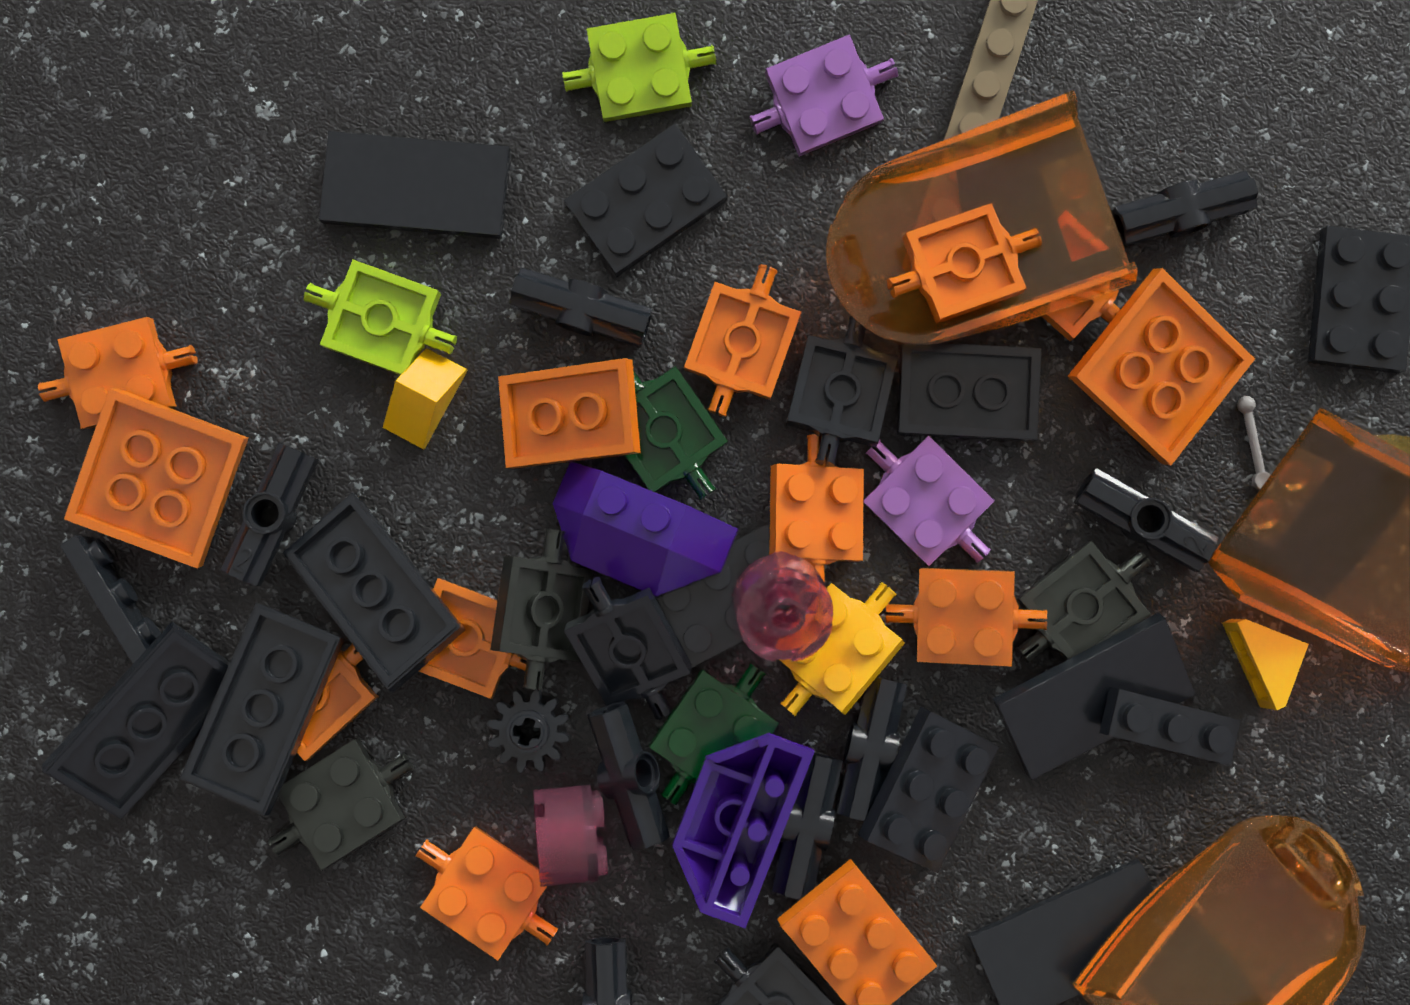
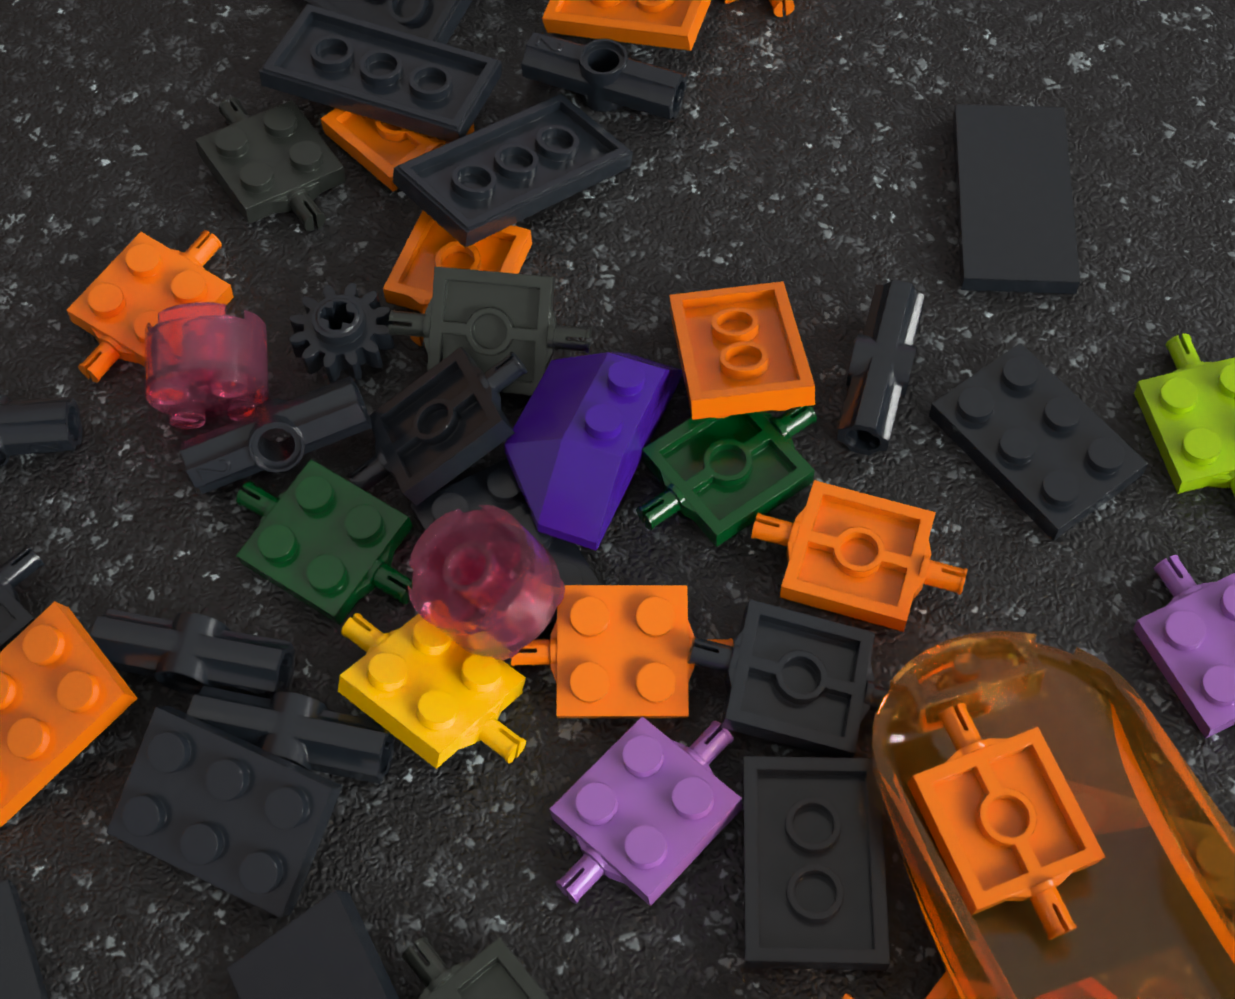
camera: 90 degrees right, 25 degrees down
(380, 318) = (843, 167): lime plate -> none
(422, 397) = (754, 212): yellow slope -> none
(738, 822) = (196, 552): dark purple wedge -> none
(966, 616) = (473, 860): orange plate -> none

